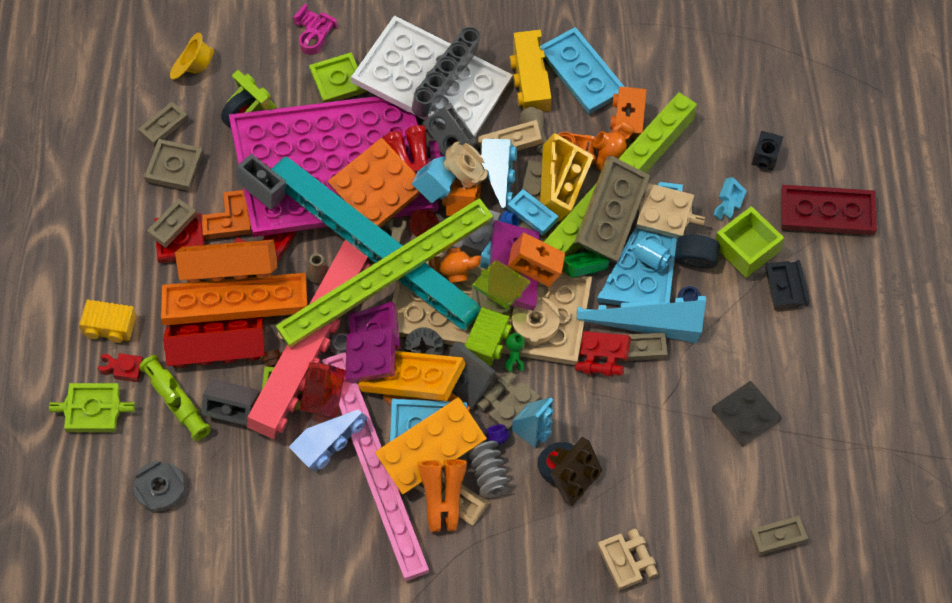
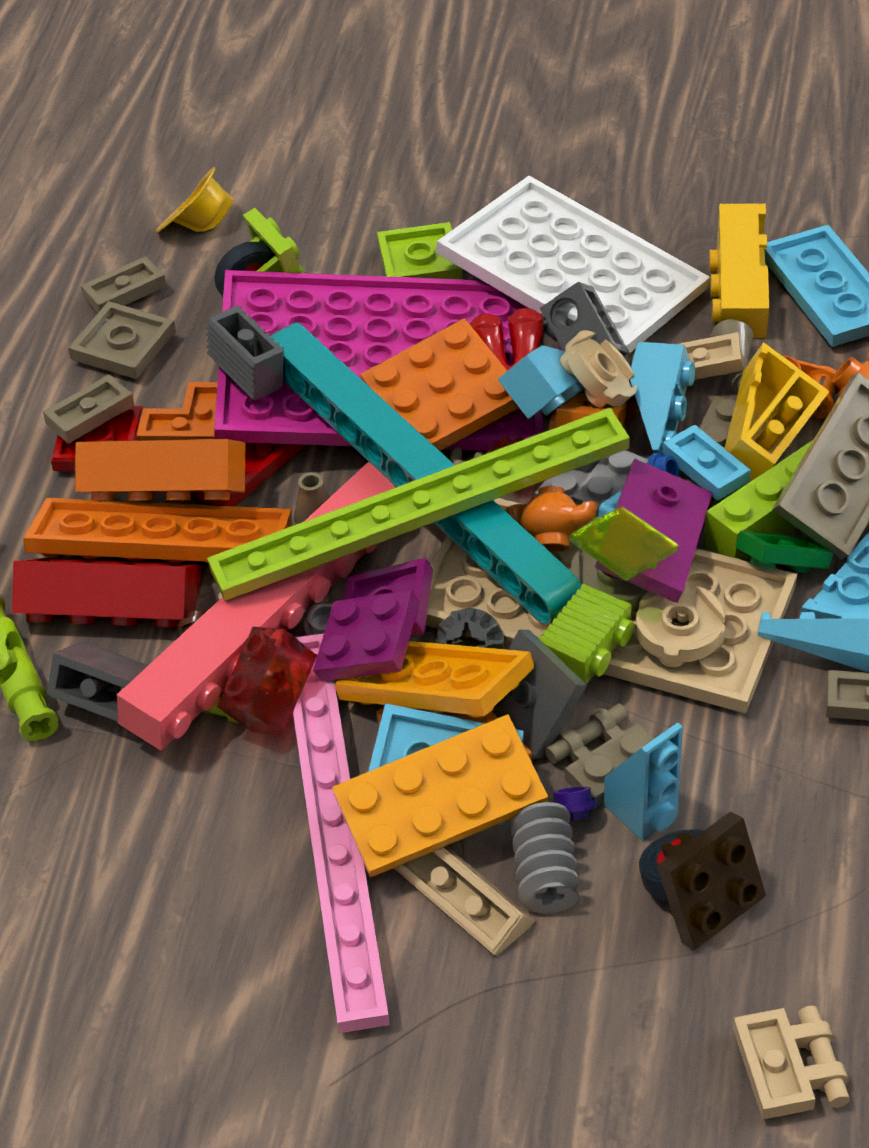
camera: 15 degrees right, 15 degrees down
(315, 28) = (399, 192): dark pink piece -> none
(323, 440) = (253, 759): light blue slope -> none
(432, 480) = (426, 845): orange piece -> none
(445, 72) = (596, 248): dark grey beam -> none
(515, 343) = (634, 659): green arm -> none
(536, 259) = (697, 519): orange brick -> none
(603, 346) = (800, 685): red plate -> none

